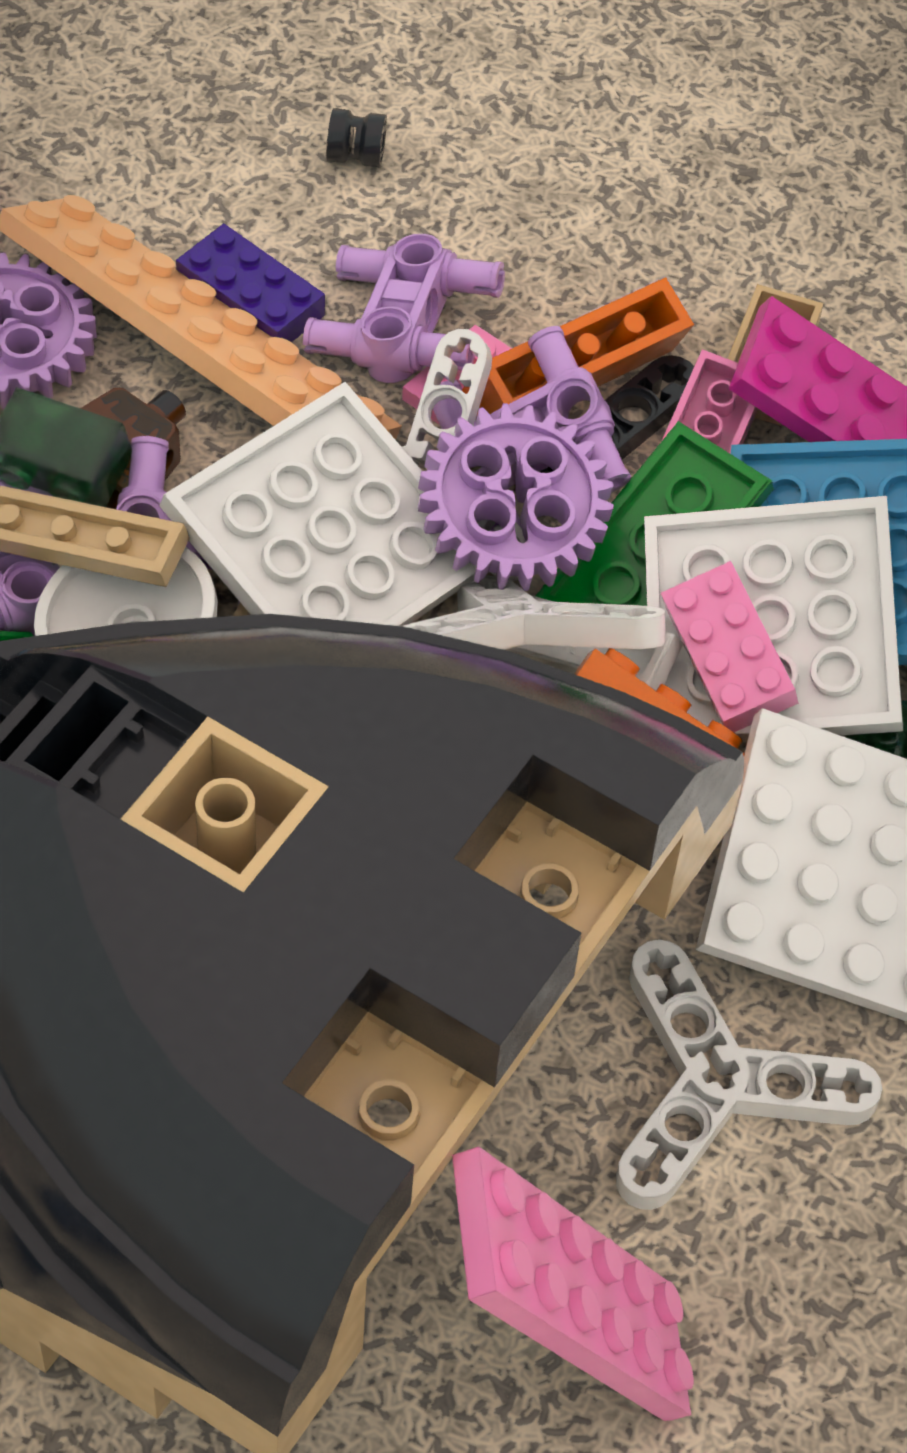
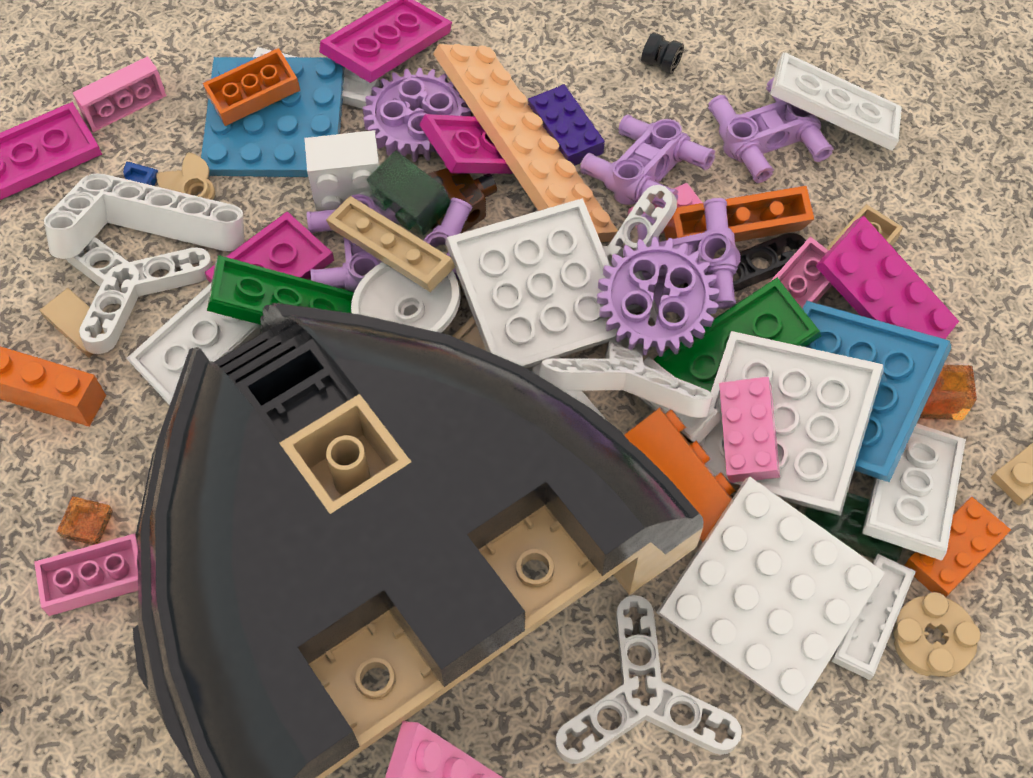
camera: 25 degrees right, 5 degrees up
(112, 354) = (463, 144): none -> dark pink plate
(567, 210) = (765, 130): none -> lavender piece
(654, 143) = (837, 101): none -> white tile

